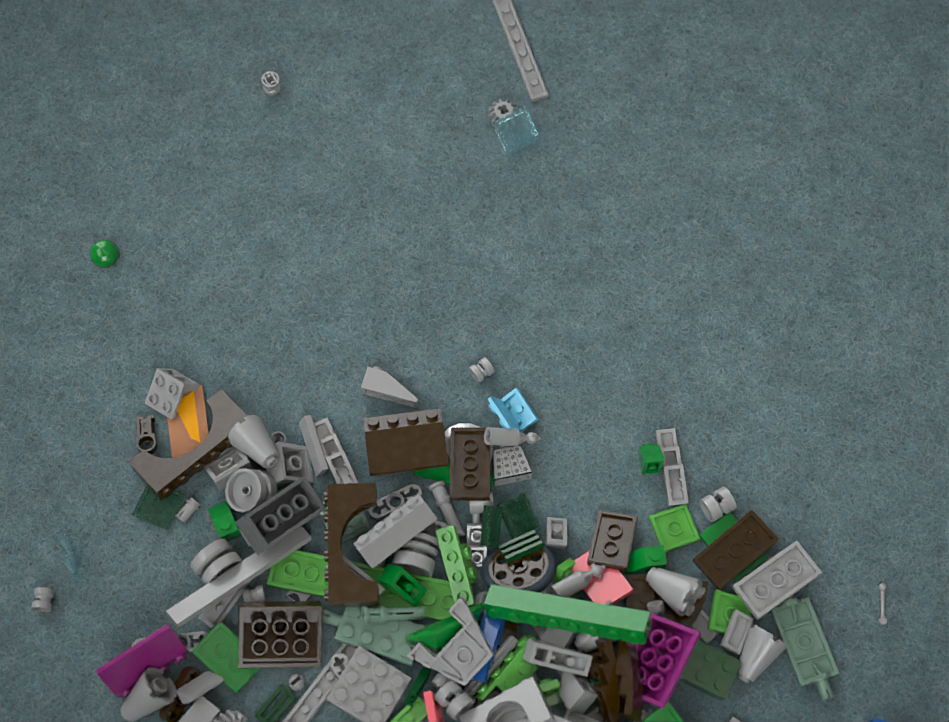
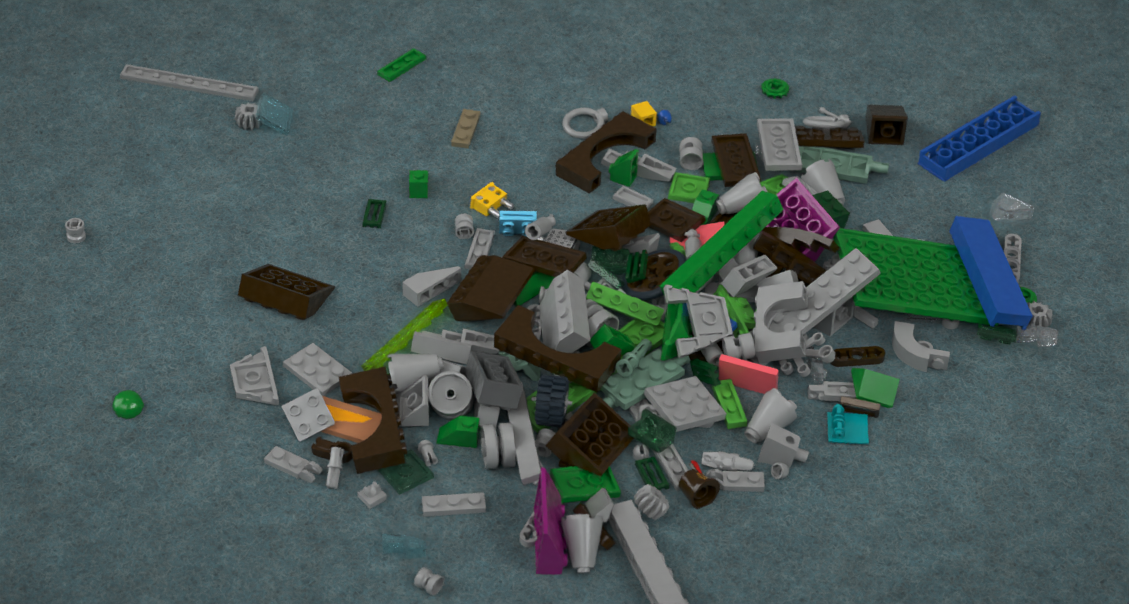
camera: 60 degrees left, 25 degrees down
(114, 413) = (292, 464): none -> light grey hinge
(116, 496) = (372, 495): none -> light grey tile
(122, 450) = (334, 467): none -> light grey axle
(144, 565) = (453, 504): none -> light grey plate
(190, 325) = (254, 378): none -> light grey wing
(233, 364) = (316, 369): none -> light grey plate
(282, 579) = (551, 401): none -> black wheel
(307, 281) = (284, 291): none -> dark brown slope
(312, 681) = (653, 431): none -> clear green bracket
(314, 407) = (401, 339): none -> clear neon green plate
(465, 399) = (480, 246): none -> light grey tile
(470, 287) = (372, 223): none -> dark green tile
(514, 297) = (418, 184): none -> green slope
(532, 366) = (490, 199): none -> yellow piece
(555, 493) = (612, 226): none -> dark brown slope
(618, 290) = (465, 128): none -> dark tan plate
(623, 488) = (630, 197): none -> light grey tile
(667, 185) = (401, 65): none -> green tile
(707, 423) = (621, 130): none -> dark brown arch
(716, 393) = (599, 116): none -> light grey piece
(745, 430) = (644, 112): none -> yellow brick
(758, 450) = (663, 117): none -> blue hinge
(836, 615) = (829, 137): none -> dark brown plate
(871, 616) = (827, 121): none -> light grey piece
(890, 525) = (782, 86): none -> green gear
(899, 659) = (886, 124): none -> dark brown slope

